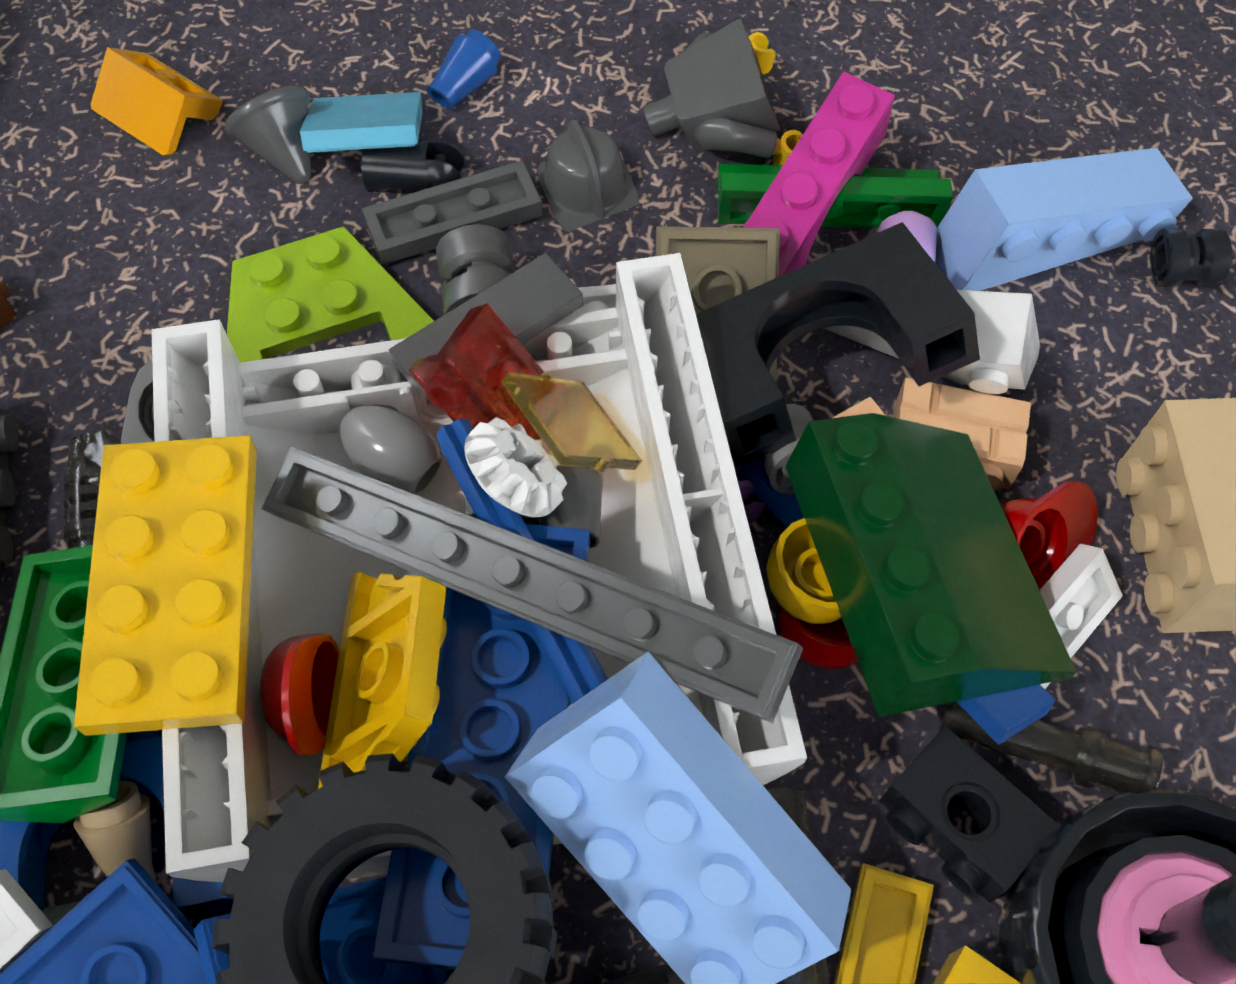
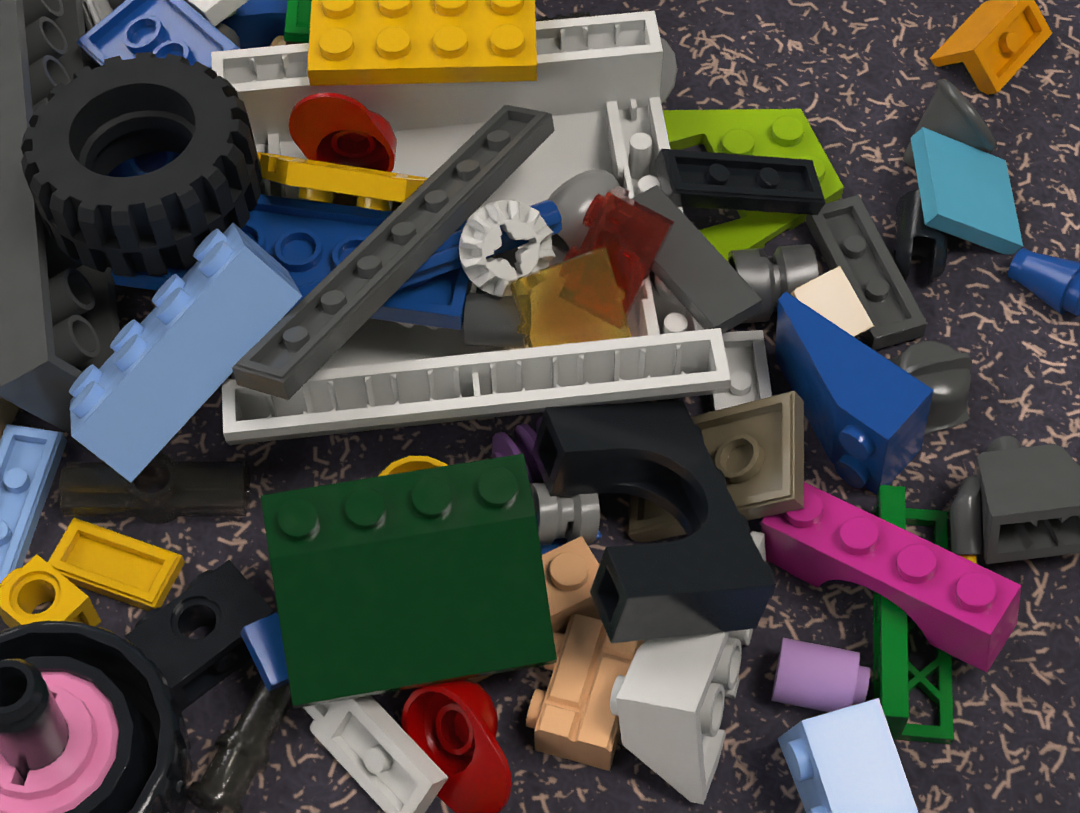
camera: 95 degrees right, 5 degrees down
(363, 293) = (739, 182): none -> black tile
(526, 225) = (836, 301): none -> tan panel
(614, 216) = (855, 399): none -> blue slope

